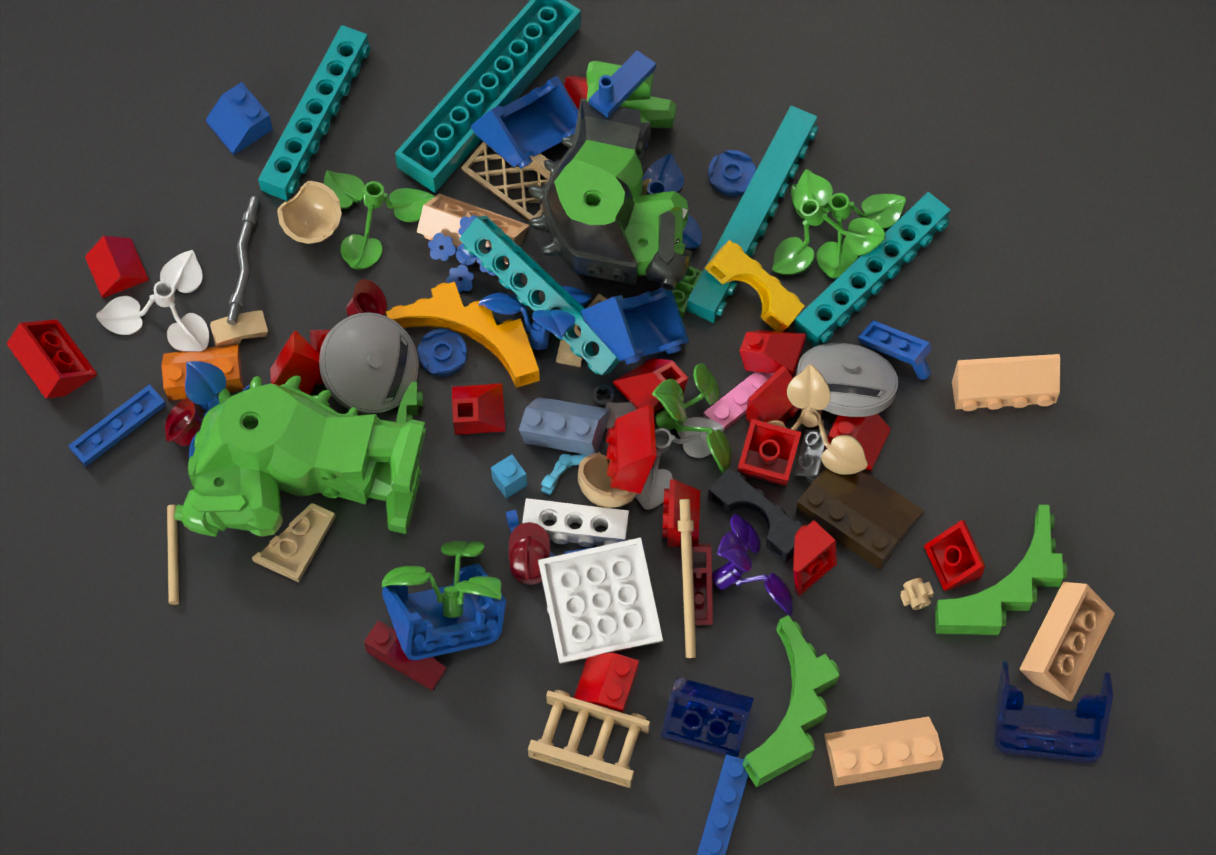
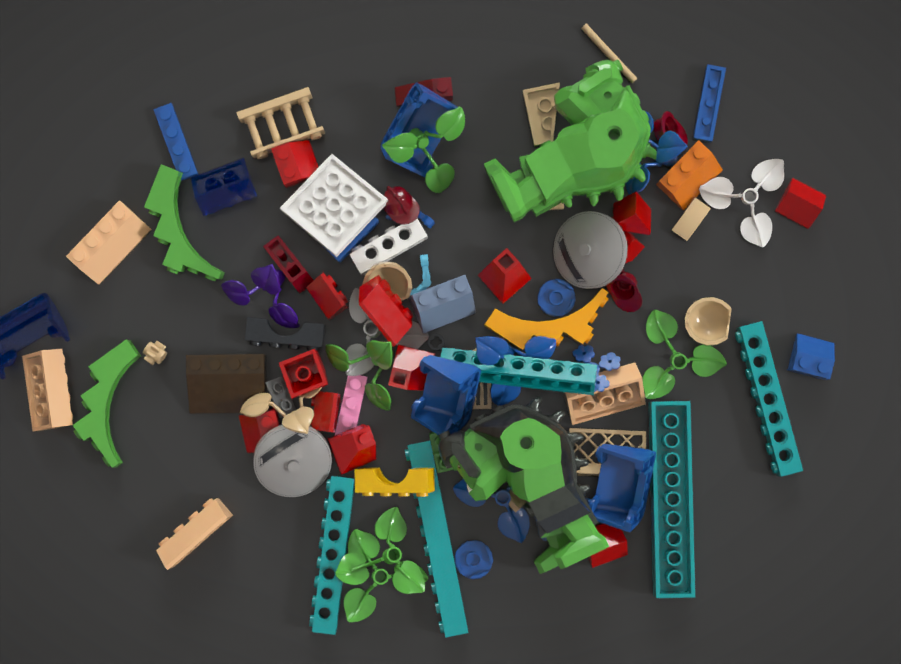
camera: 140 degrees right, 20 degrees up
(50, 357) = (786, 114): red slope -> none
(238, 299) = (706, 233): dark grey bar -> none
(410, 404) = (546, 248): bright green slope -> none
(509, 476) = (450, 245): dark azure brick -> none
(617, 88) = (572, 543): blue piece -> none
(686, 525) = (312, 279): tan bar -> none
(813, 556) = (232, 326): red slope -> none
(898, 345) = (280, 508): blue piece -> none
(955, 557) = (148, 393): red slope -> none

